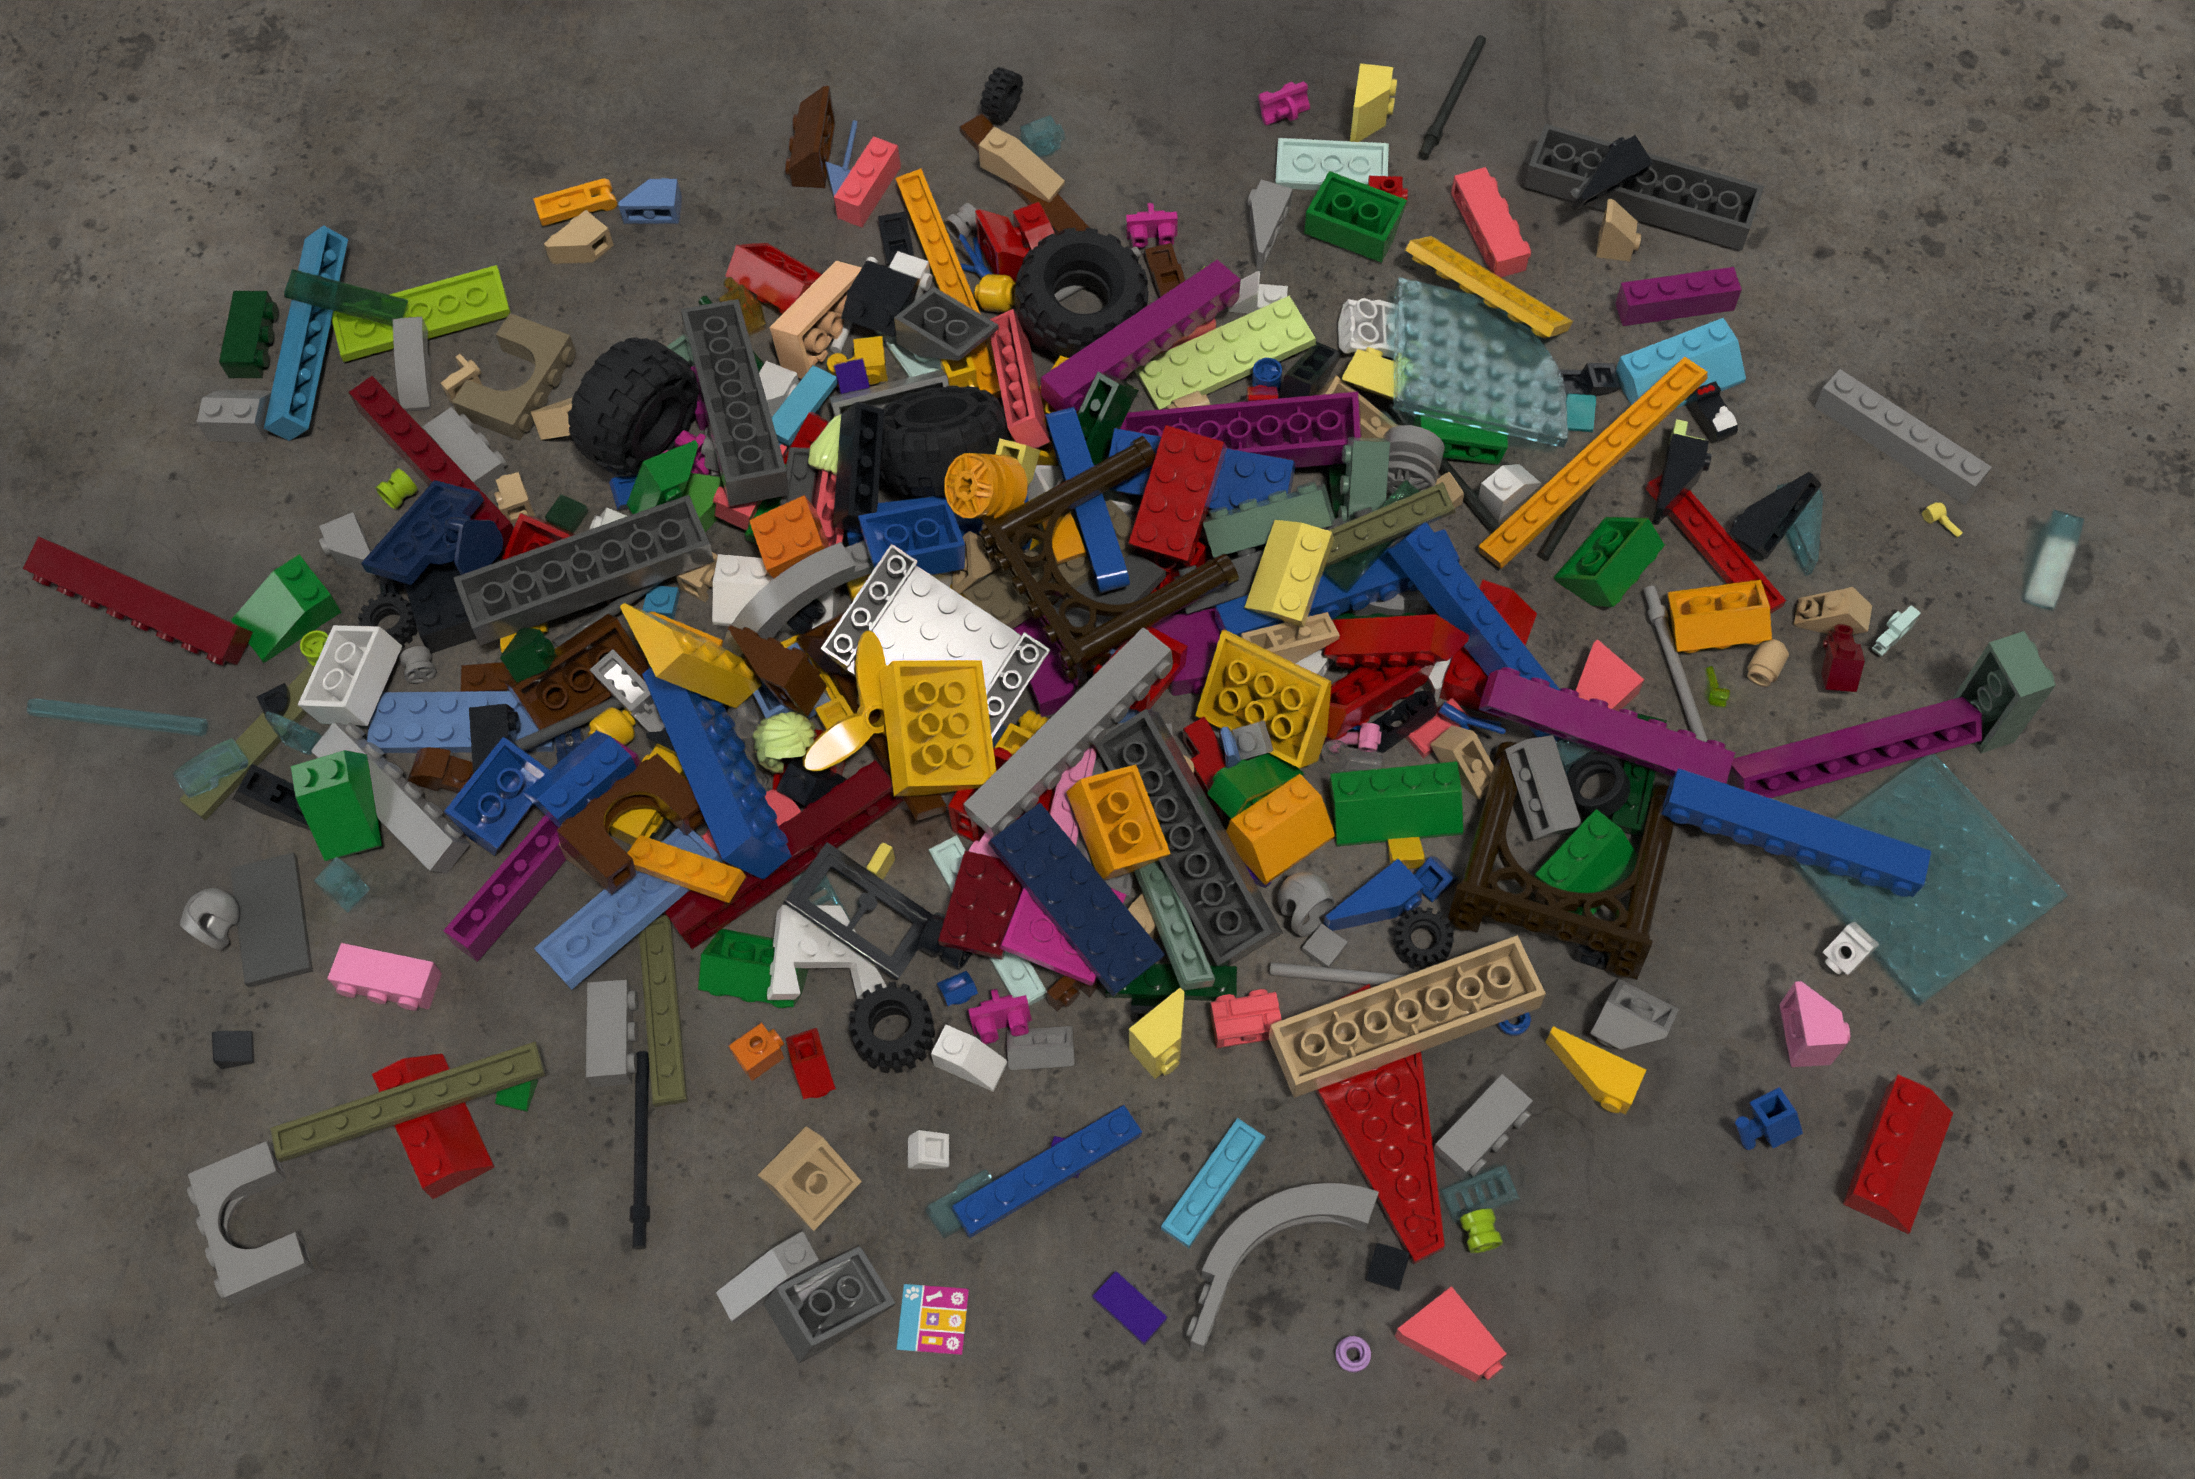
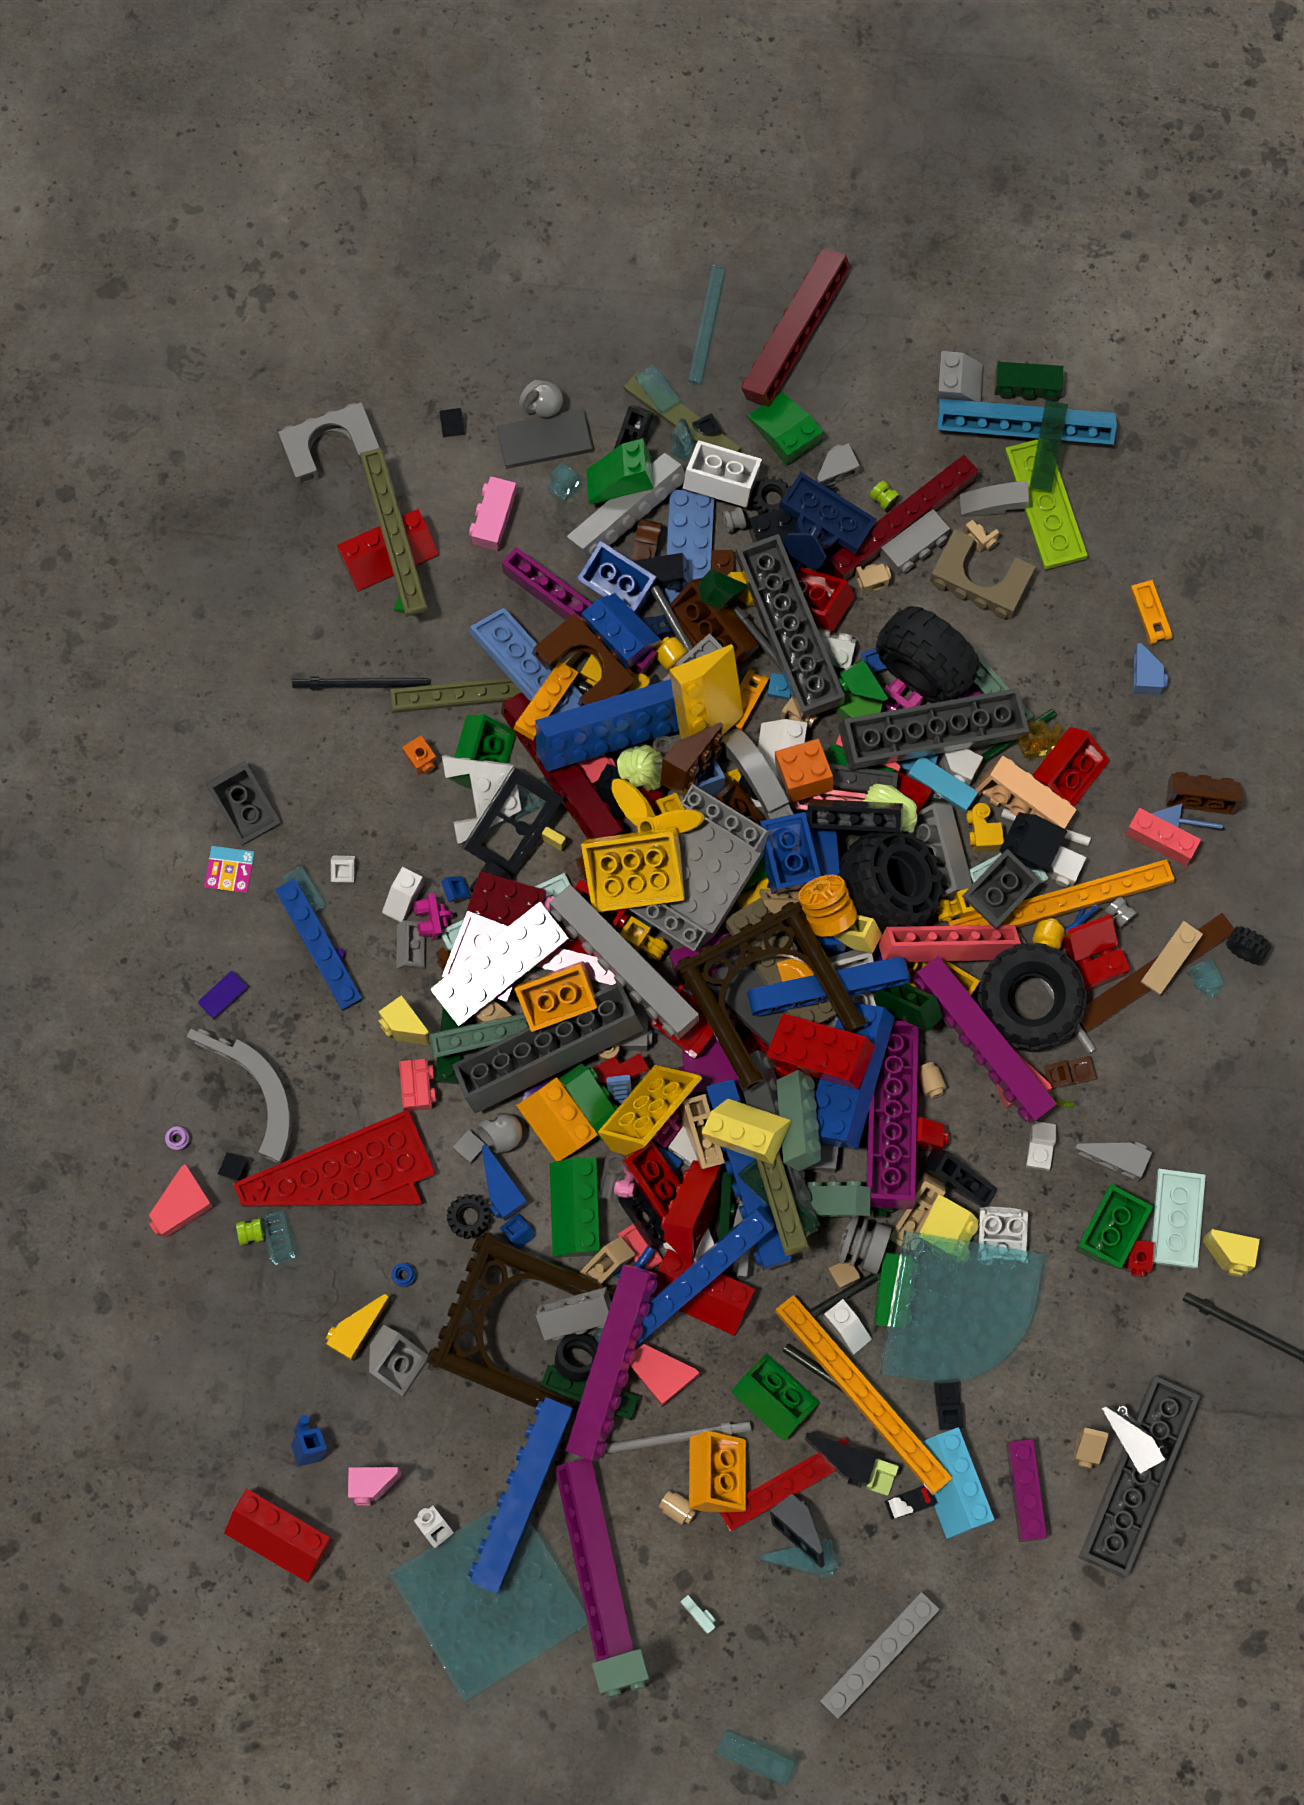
camera: 90 degrees right, 10 degrees up
(312, 645) = (750, 447): lime wheel -> none
(553, 419) = (943, 606): tan slope -> none
(566, 513) = (857, 616): clear green plate -> none
(579, 241) = (1111, 618): tan slope -> none
(610, 1033) = (441, 660): light grey brick -> none
(756, 1283) = (264, 766): light grey slope -> none
(810, 1064) = (408, 789): red slope -> none
(810, 1178) = (327, 789): tan slope -> none
(852, 375) = (966, 821): dark purple tile -> none
(889, 1002) = (428, 861): black tyre -> none
(895, 235) = (1108, 860): black slope -> none
(1142, 1006) = (431, 1018): black slope -> none
(1151, 225) = (1112, 1072): dark pink hips -> none
(1213, 1183) = (303, 1056): medium azure tile -> none
(1226, 353) = (983, 1116): yellowish green plate -> none
(1252, 740) = (623, 1100): light grey plate -> none
(1267, 373) = (962, 1141): blue wheel -> none
(1284, 103) = (1239, 1182): dark pink hips -> none
(1331, 974) = (434, 1218): light grey bar -> none
(1406, 1016) = (400, 1191): tan brick -> none
(1407, 850) = (538, 1212): yellow slope -> none
(1483, 1128) = (322, 1242): light grey brick -> none
(1490, 222) = (1108, 1343): coral brick -> none
(1495, 290) = (1038, 1331): yellow plate -> none
(1580, 412) = (916, 1393): teal slope -> none
(1591, 859) = (514, 1341): green slope -> none
(1717, 695) = (652, 1466): clear neon green hand -> none
(1836, 607) = (717, 1568): tan slope -> none
(1842, 660) = (674, 1565): dark red brick -> none
(1938, 511) = (808, 1672): light yellow hand -> none

